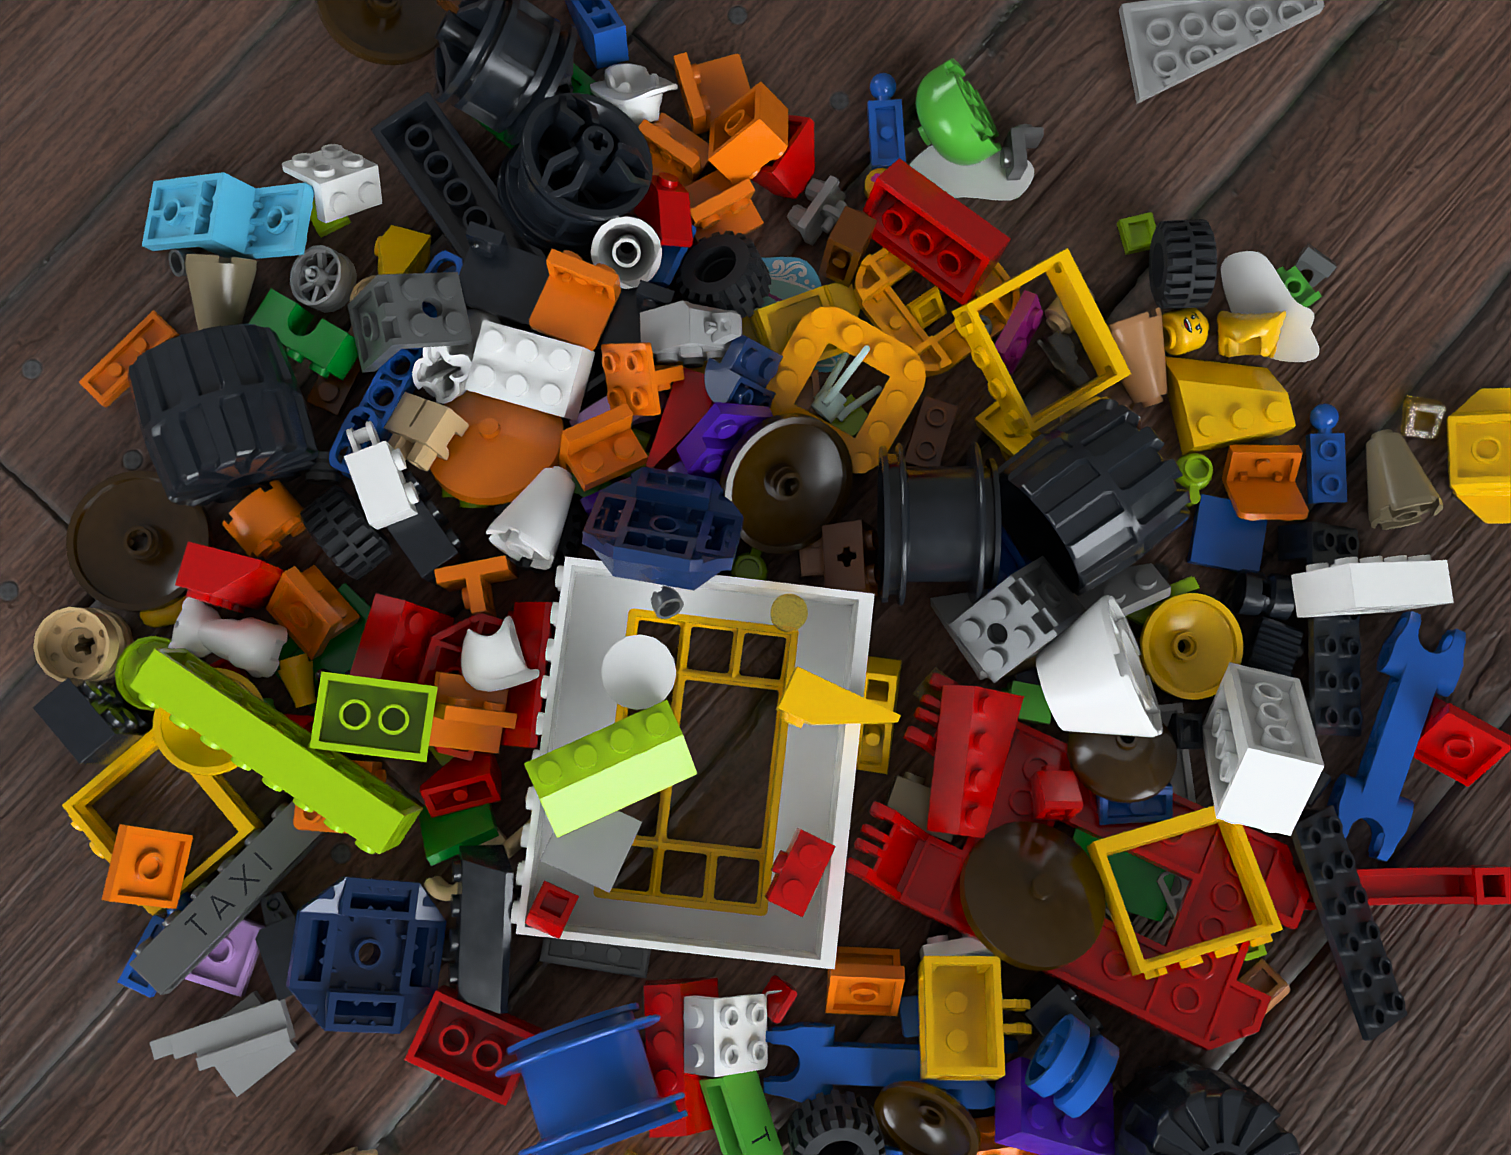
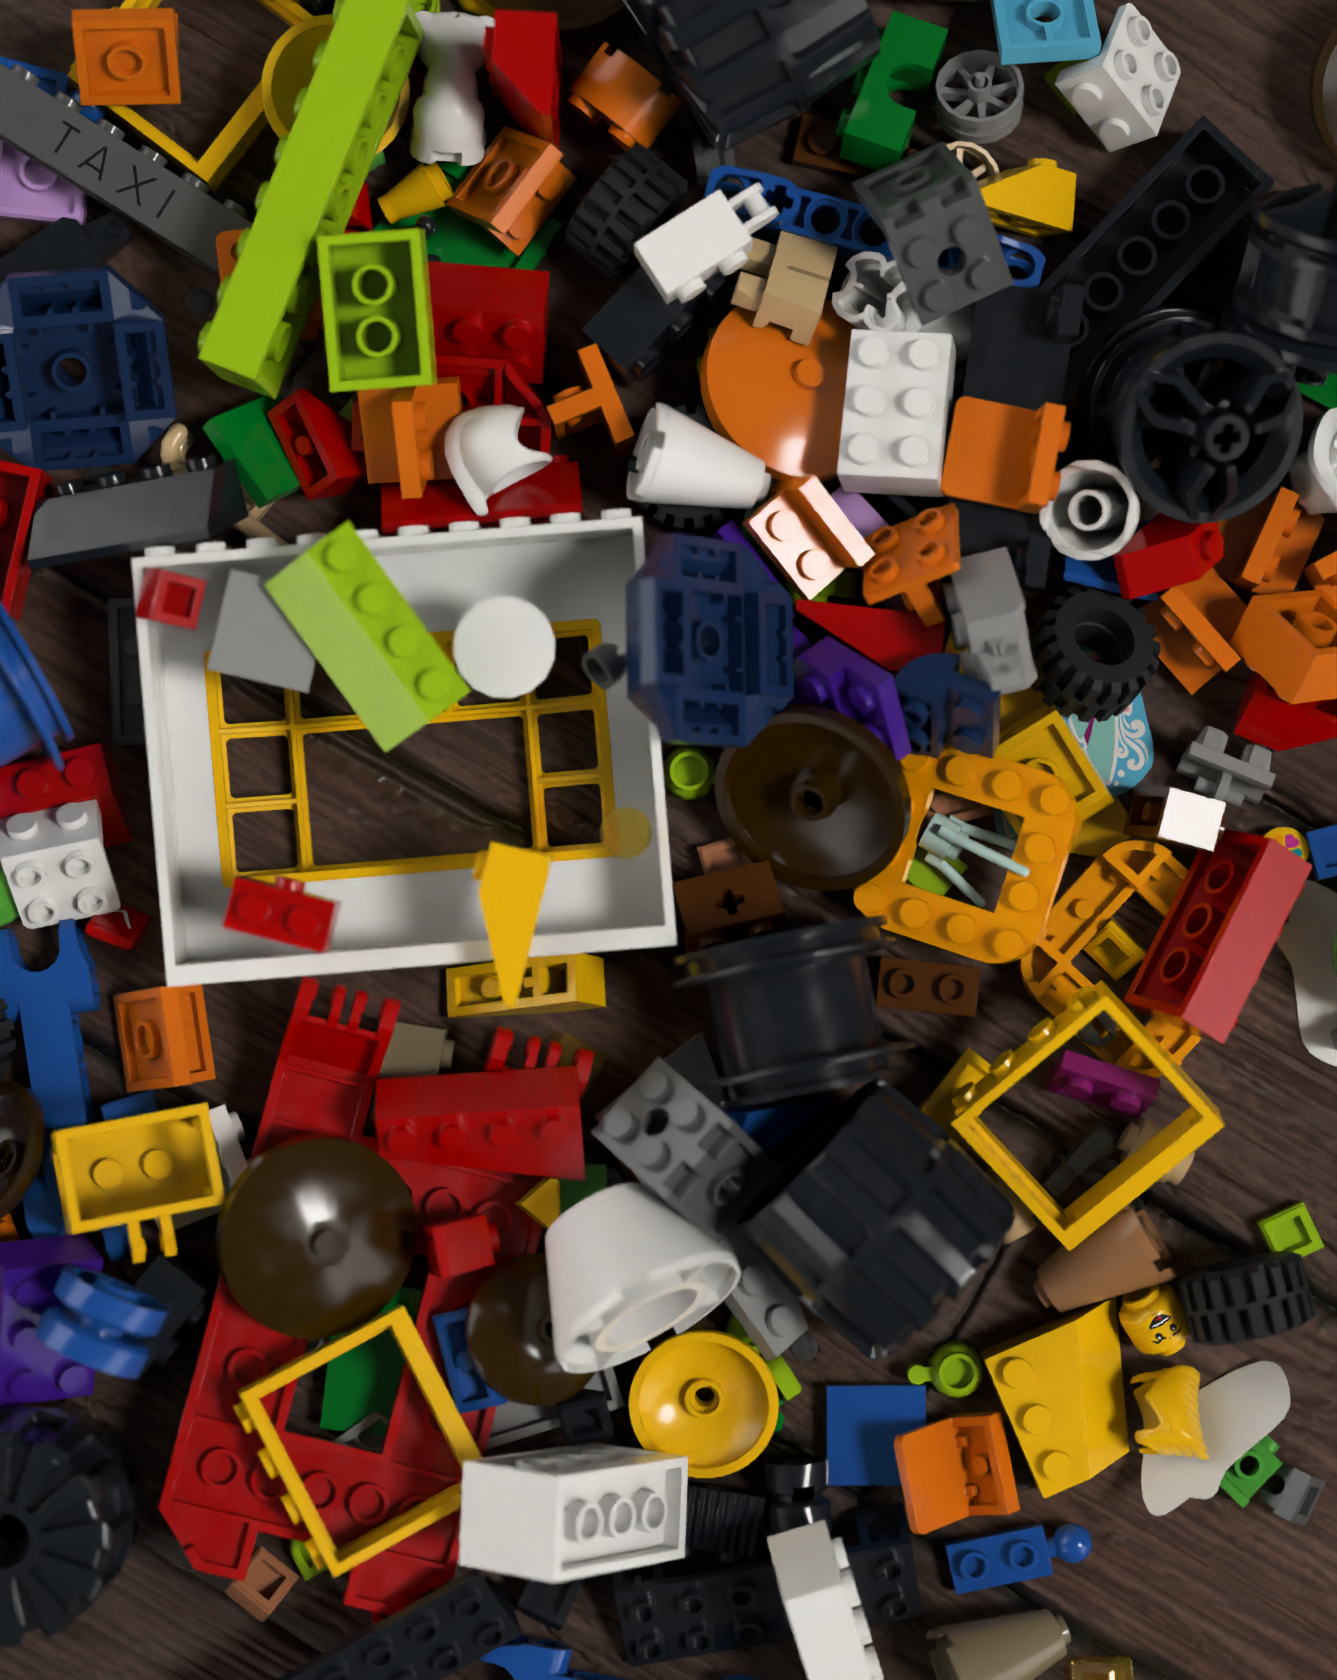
camera: 85 degrees right, 5 degrees up
(1033, 729) = (542, 1202): none -> yellow slope

